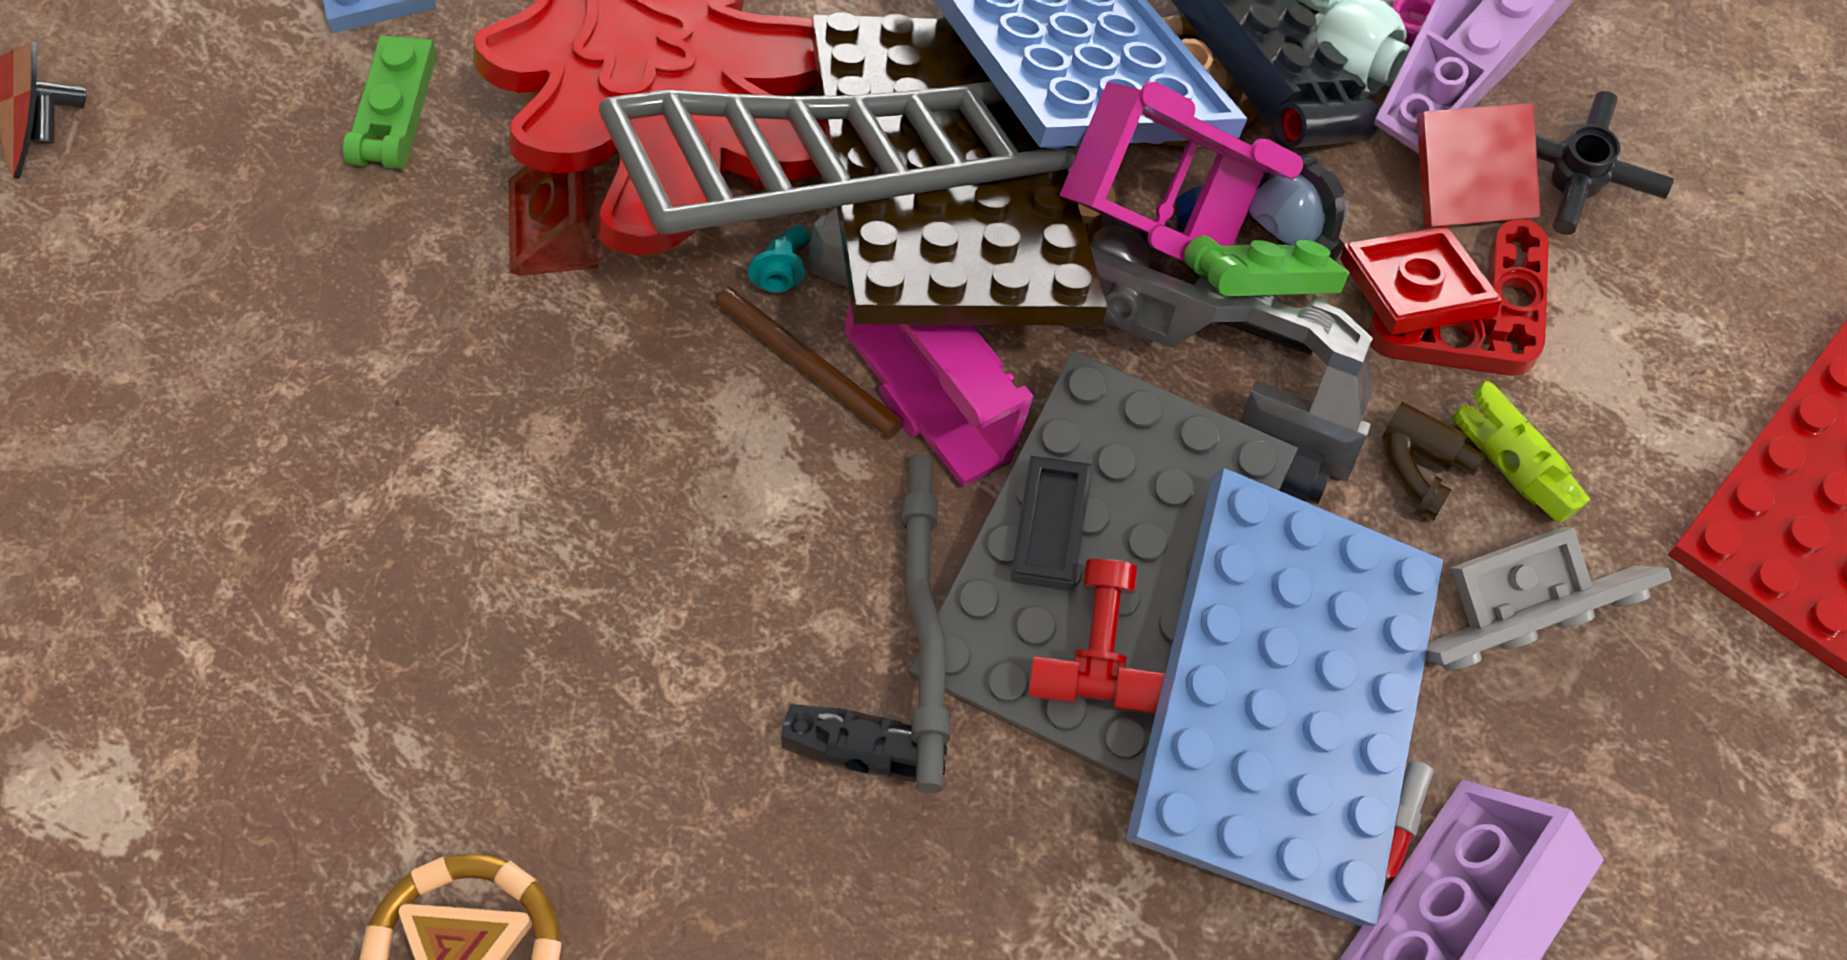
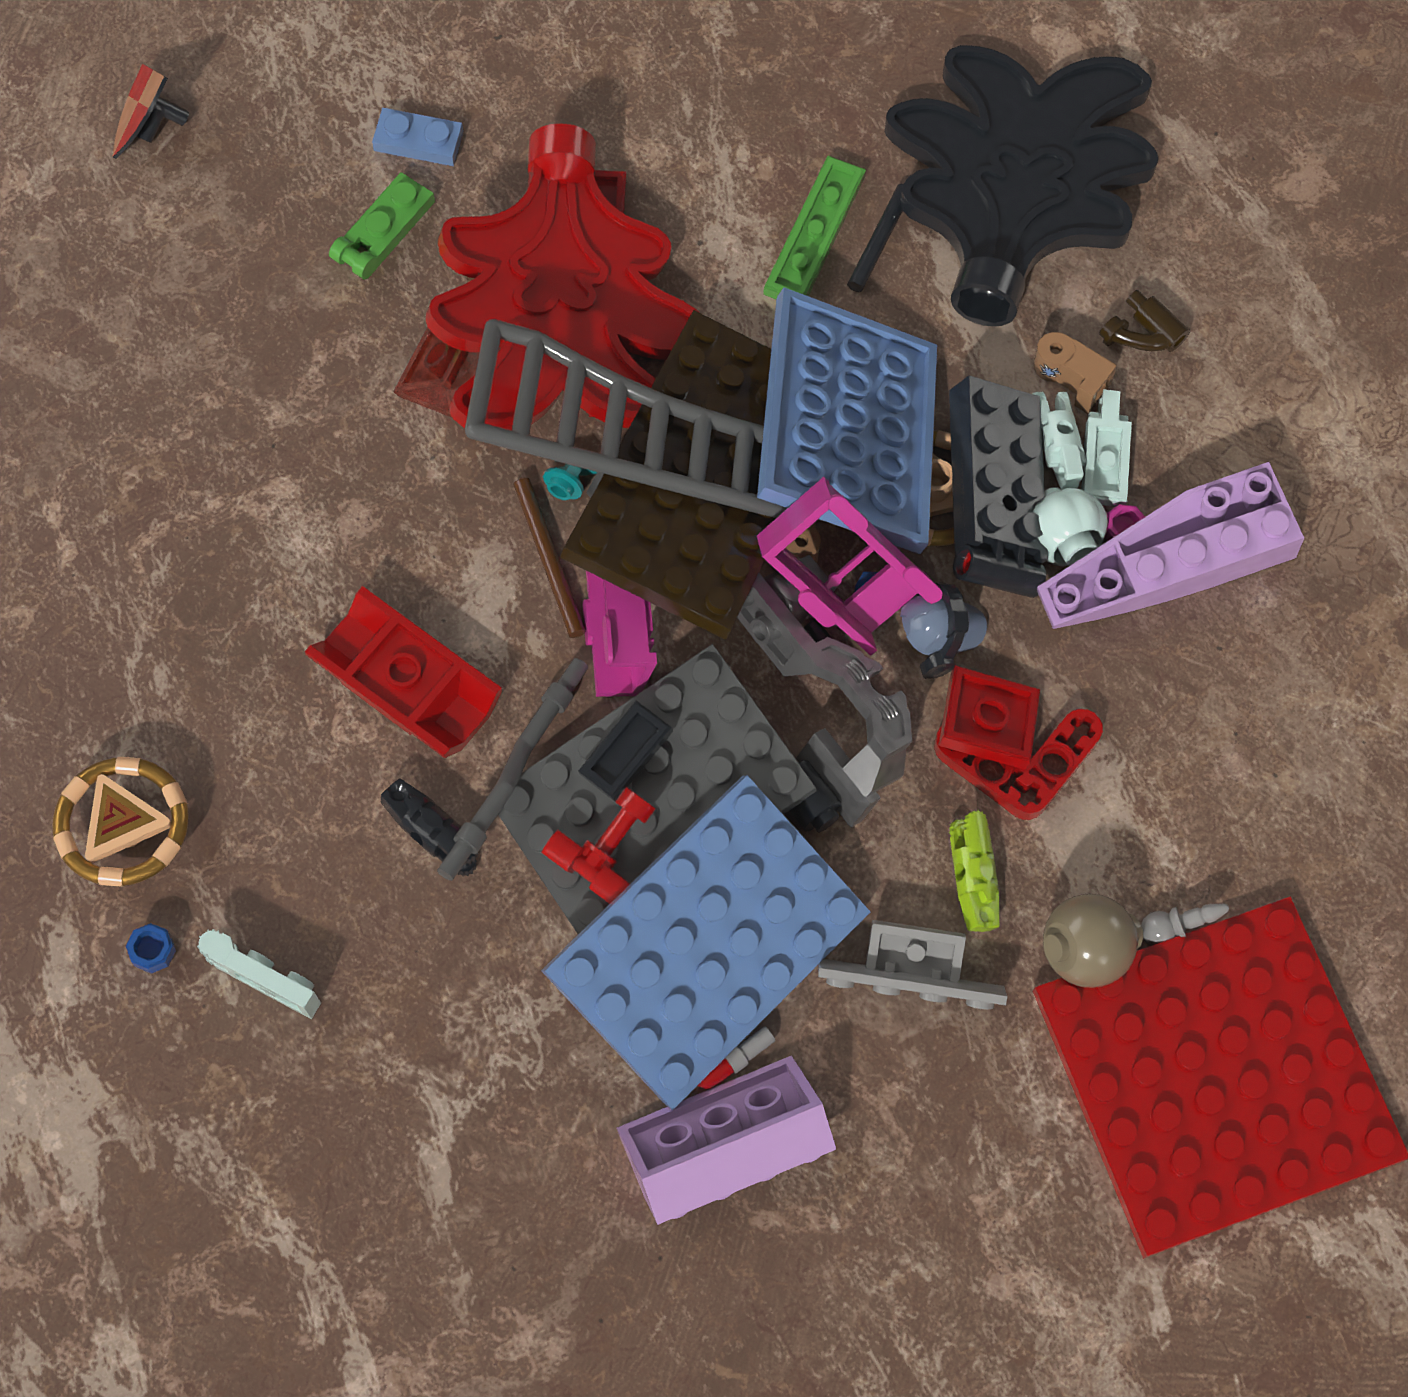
camera: 25 degrees right, 5 degrees up
(722, 576) = (407, 675): none -> red piece
(1266, 267) = (874, 656): bright green plate -> none
(1433, 442) = (922, 830): dark brown plant -> none
(1478, 165) = (1086, 658): tile -> none
(1590, 162) = (1157, 706): black bar -> none
(1707, 457) = (1091, 940): none -> dark tan brick
(1755, 407) = (1163, 926): none -> light grey bar

